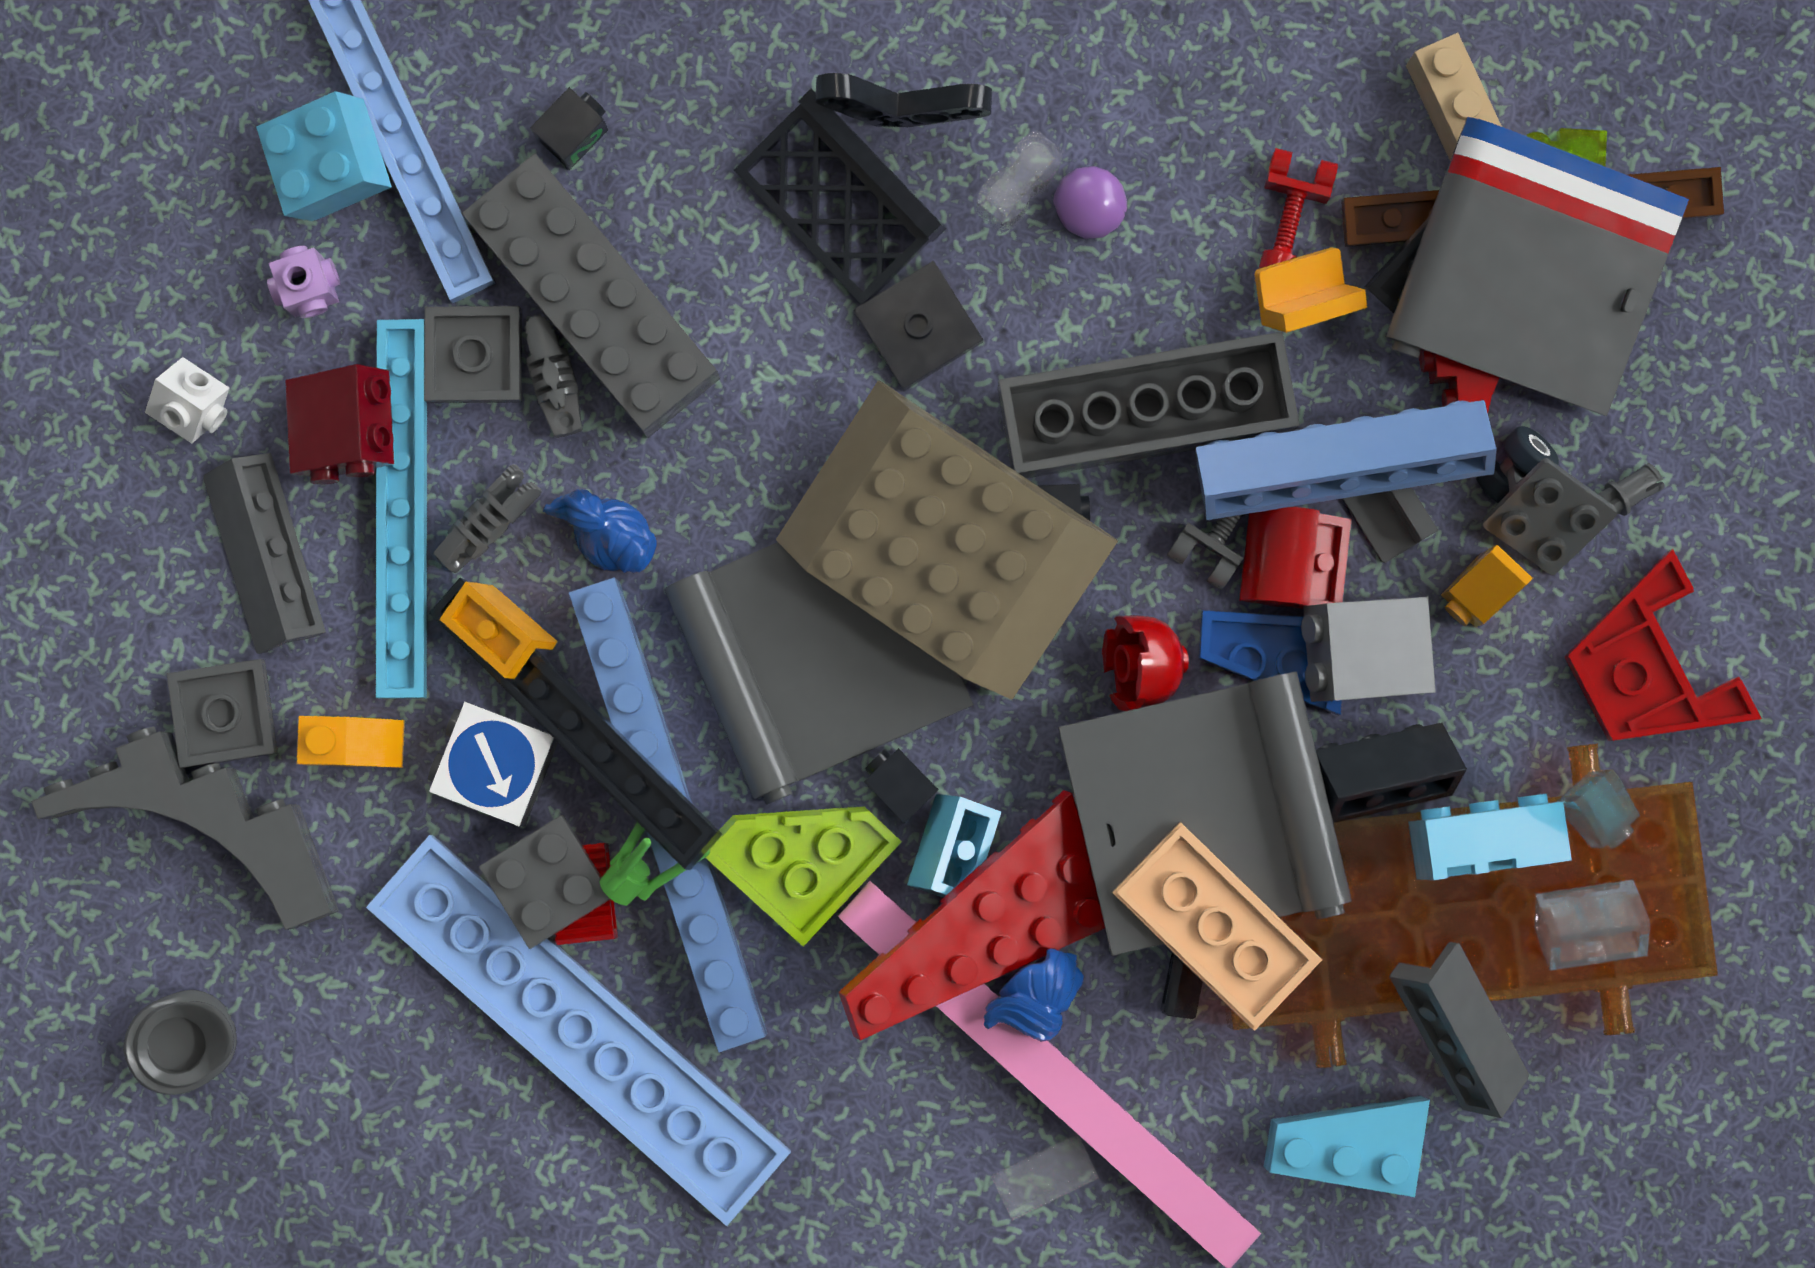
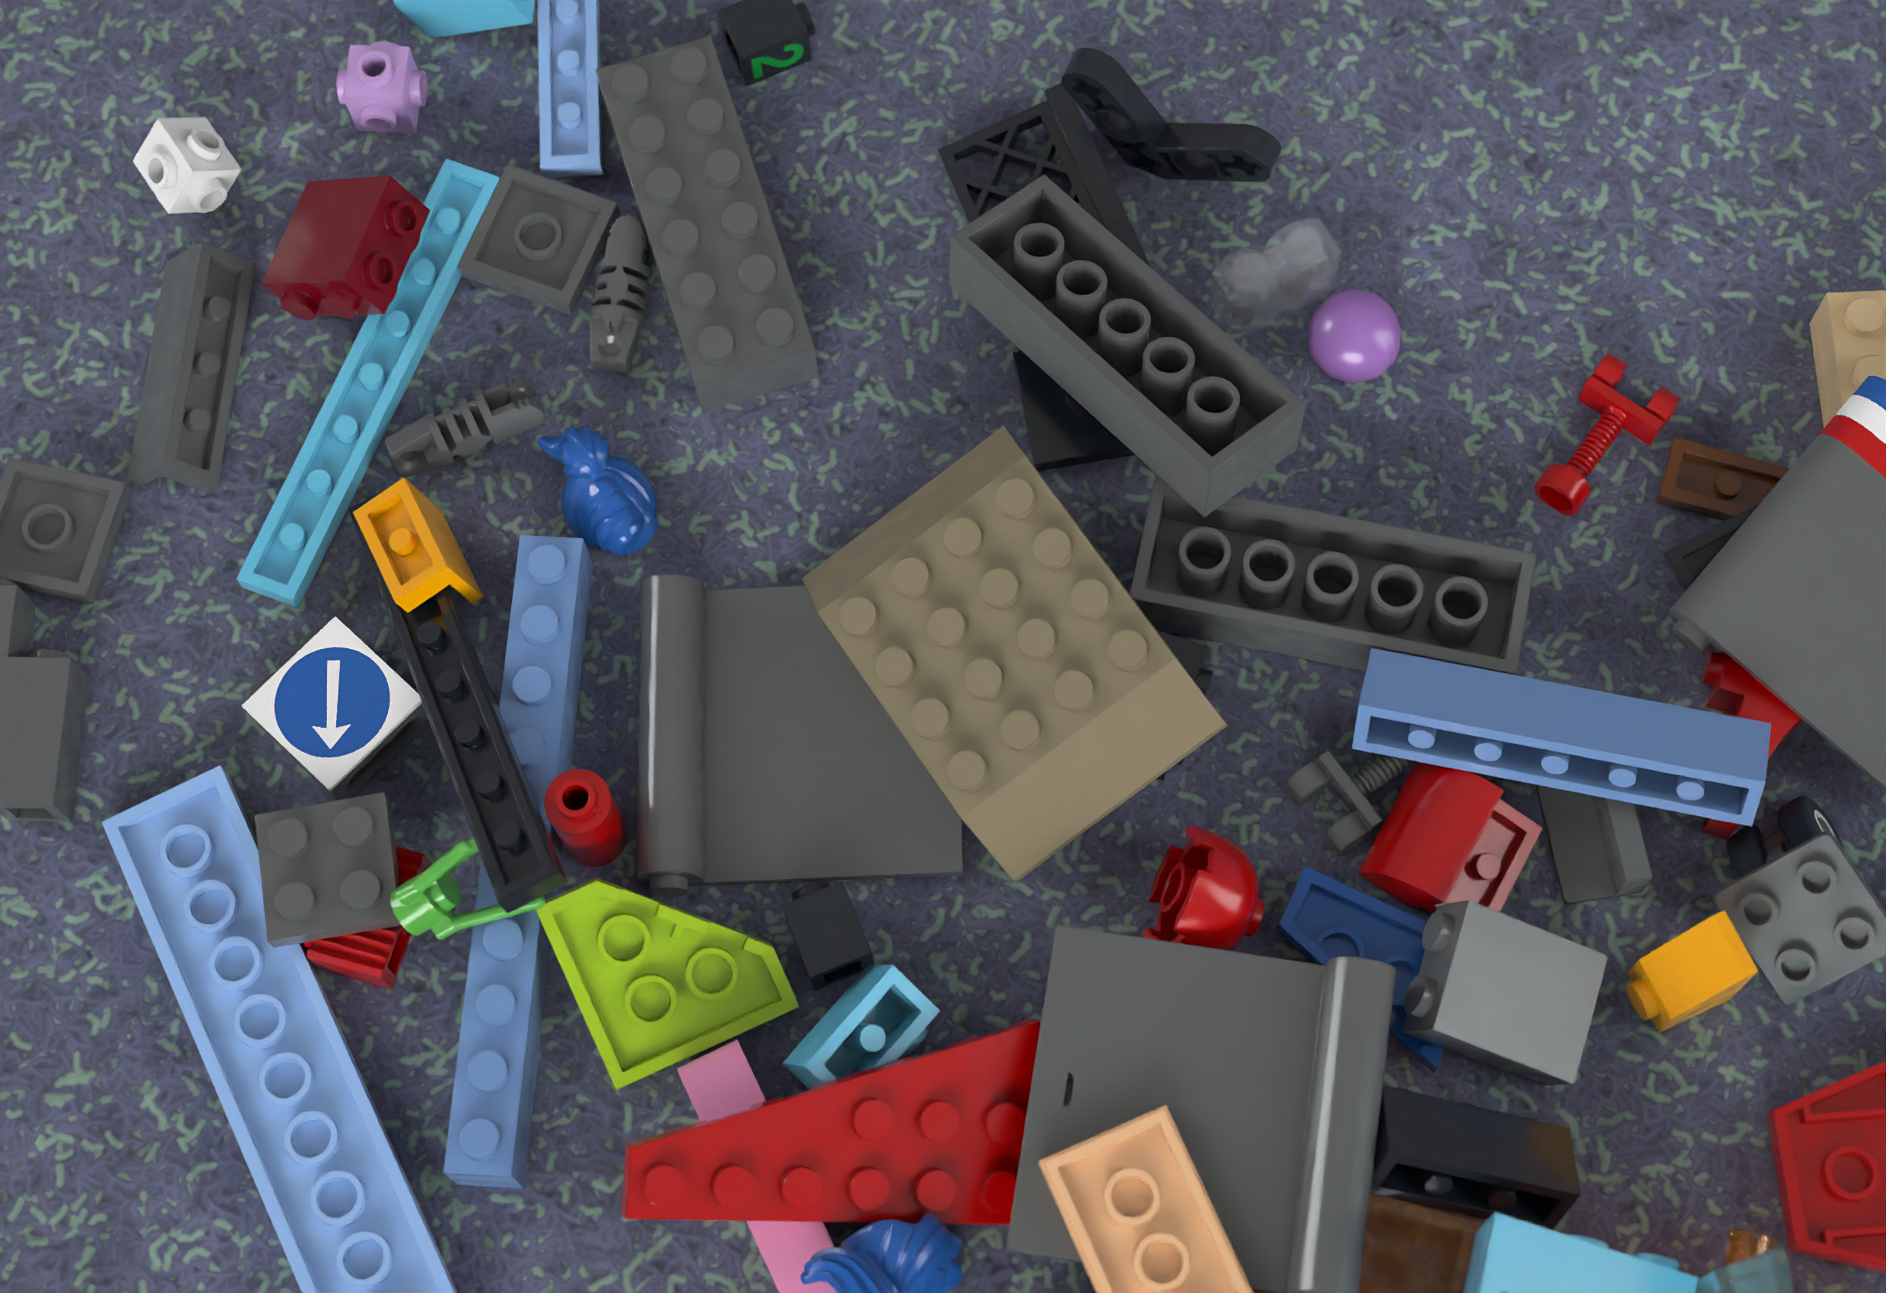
camera: 25 degrees right, 15 degrees down
(350, 742) = (179, 618): light orange slope -> none
(720, 775) = (586, 817): none -> red brick
(938, 287) = (1125, 344): none -> dark grey brick
(1306, 291) = (1585, 524): light orange panel -> none

